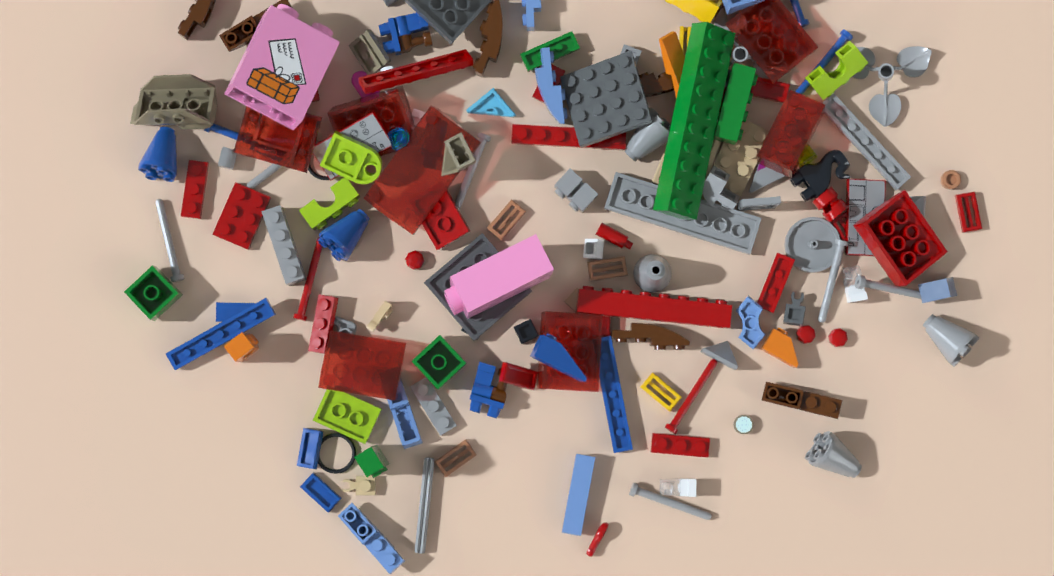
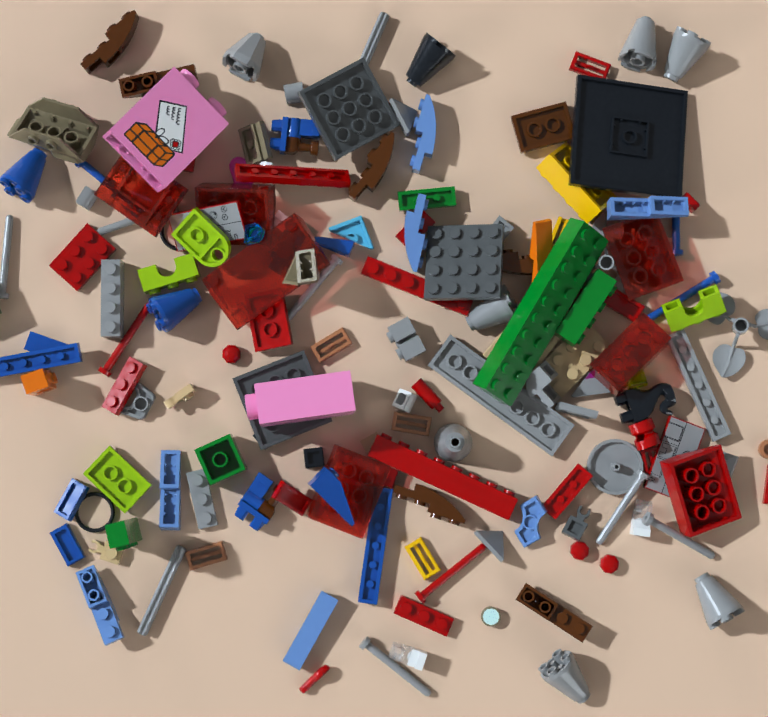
camera: 20 degrees right, 0 degrees up
(194, 189) = (47, 217): red plate -> none
(362, 365) = (146, 438): clear red slope -> none
(483, 123) = (339, 246): none -> blue slope
(780, 347) = (551, 554): orange slope -> none
(937, 290) = (720, 551): slope -> none

